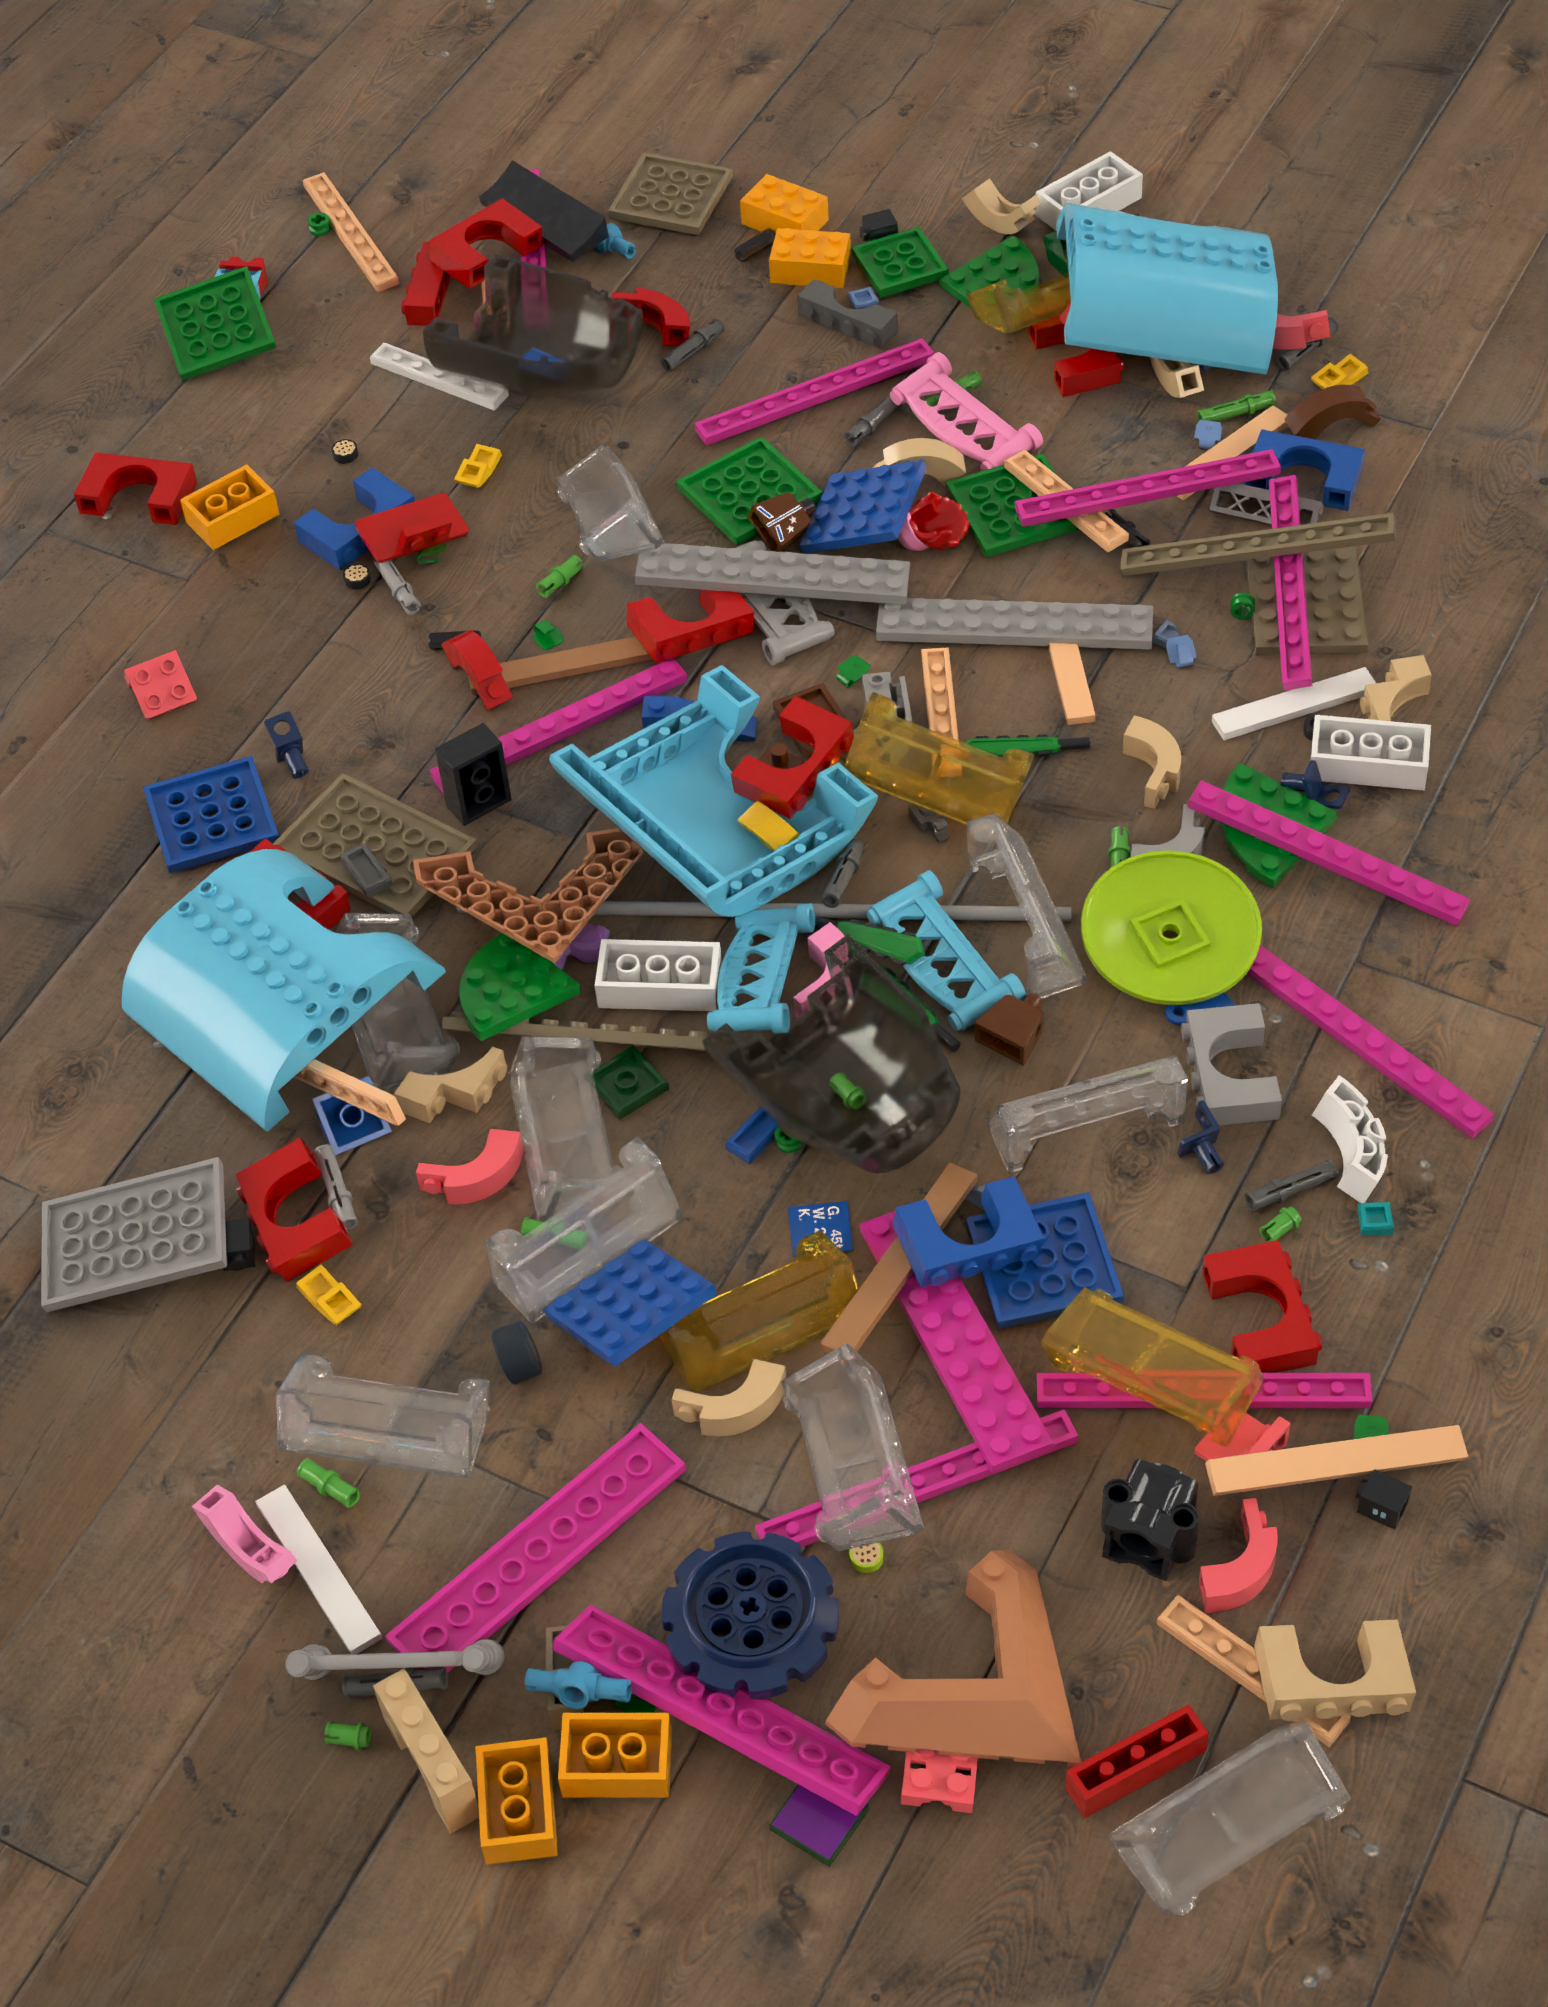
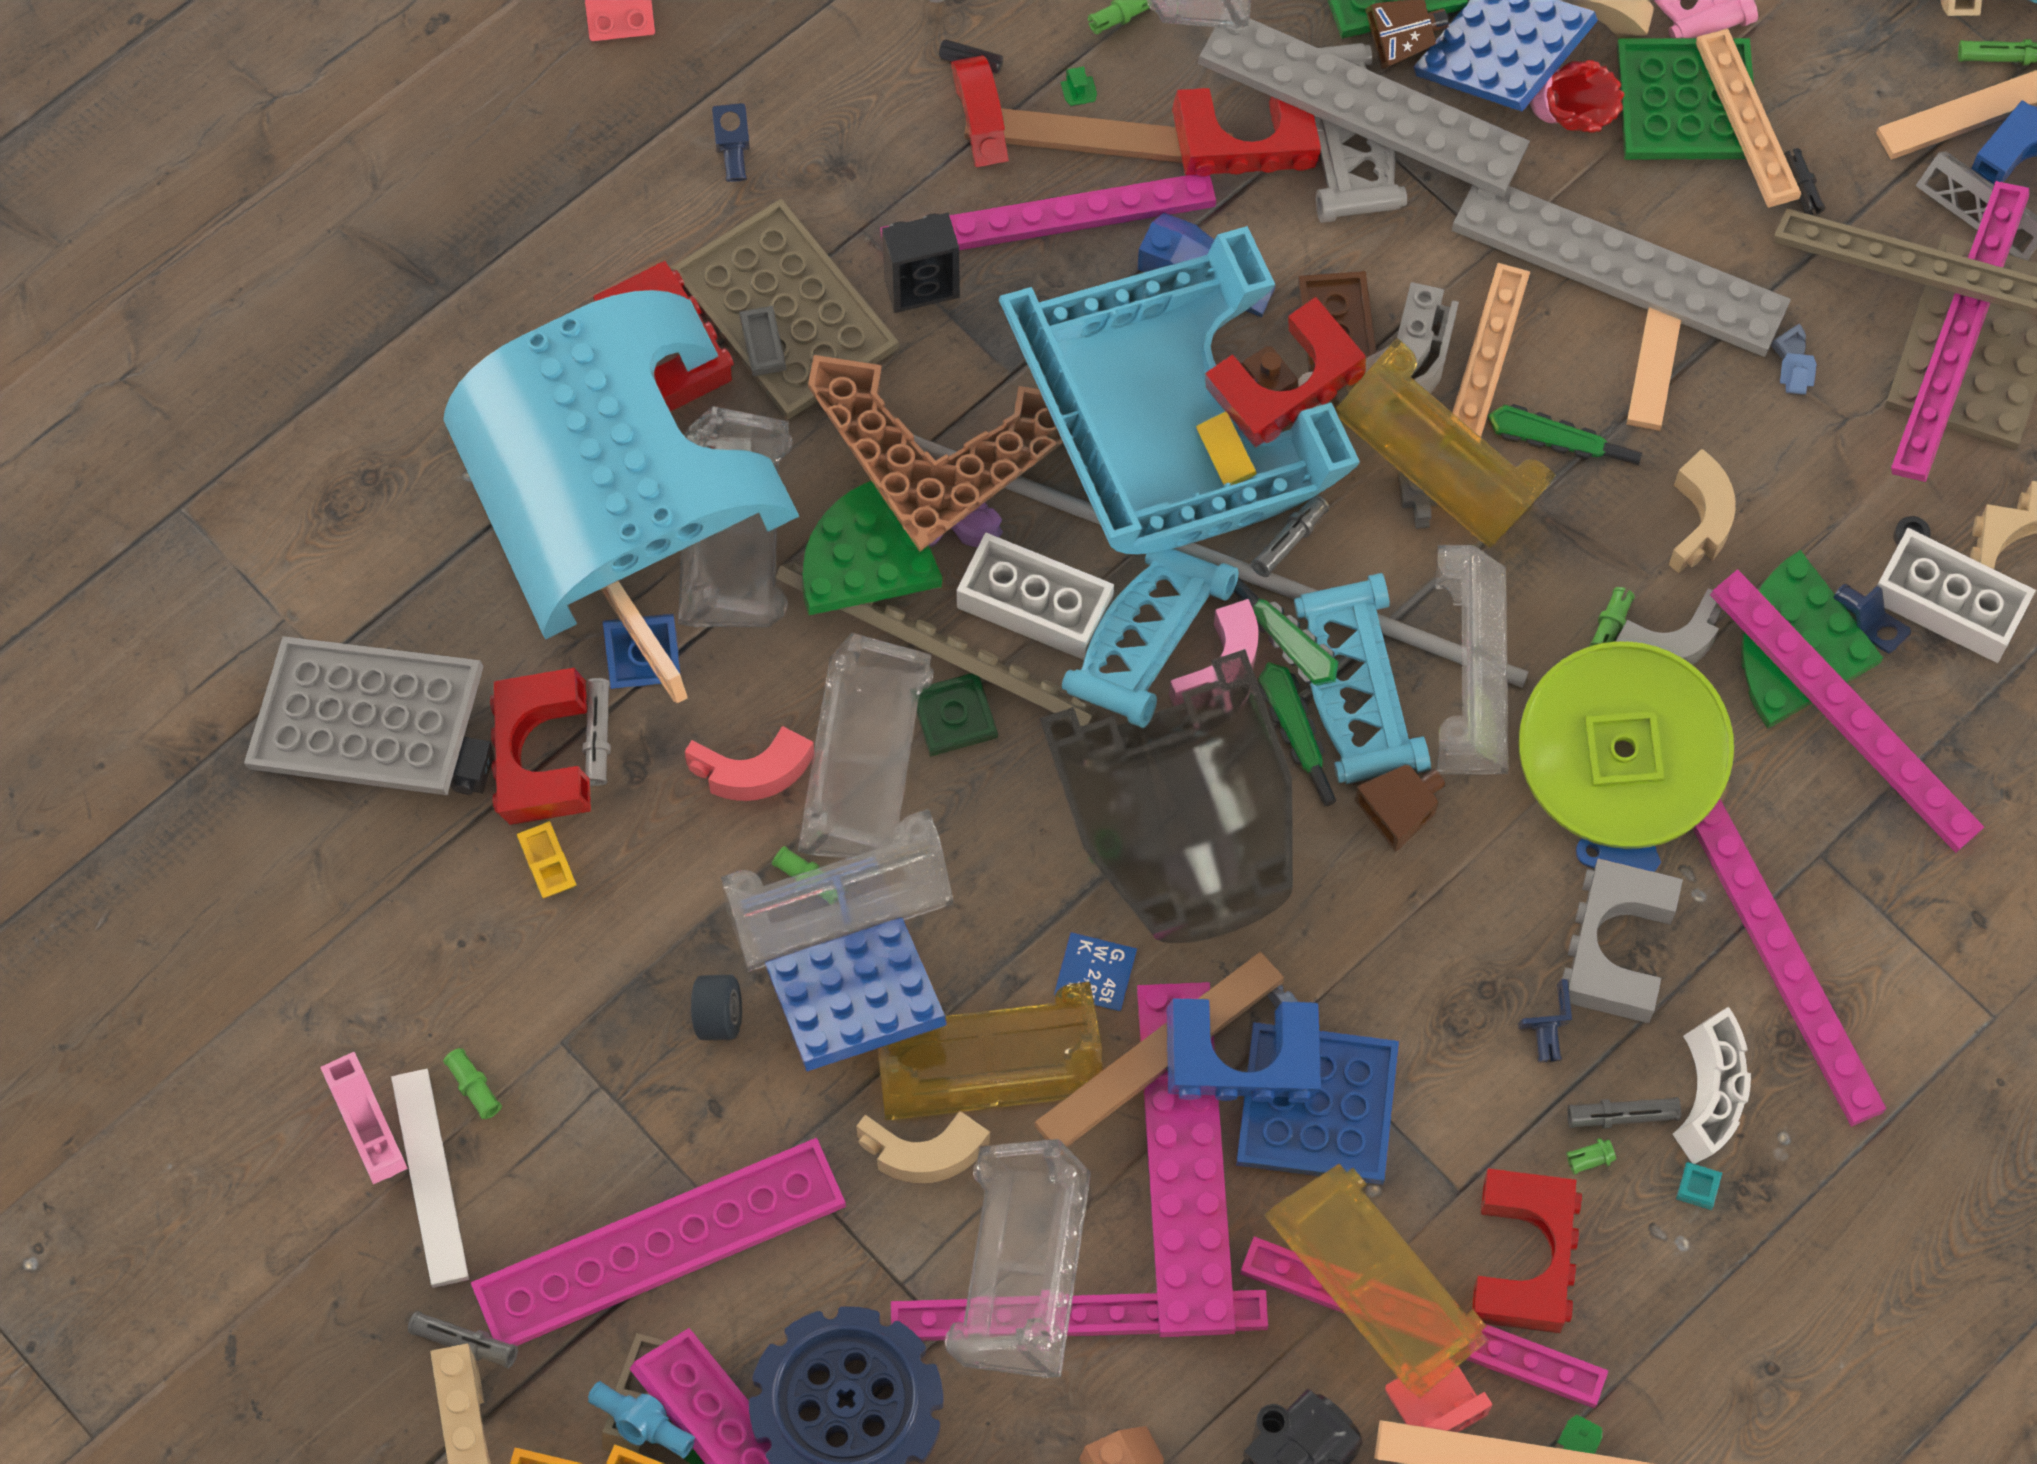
camera: 15 degrees right, 15 degrees up
(201, 827) = (603, 184): blue piece -> none
(317, 1661) = (392, 1292): light grey piece -> none
(348, 1735) = (398, 1376): bright green pin -> none
(380, 1419) = (551, 1030): clear windscreen -> none
(469, 1088) = (780, 661): tan arch -> none
(752, 1137) = (1057, 836): blue tile -> none
(851, 670) = (1405, 268): green piece -> none
(852, 1095) = (1189, 826): bright green pin -> none
(867, 1558) = (994, 1382): tile -> none
(1147, 487) = (1848, 140): dark pink plate -> none
(1155, 1086) = (1522, 937): clear windscreen -> none
(1208, 433) = (1960, 76): medium blue piece -> none
(1242, 612) = (1895, 337): green bush -> none
(1292, 704) = (1895, 492): white tile -> none

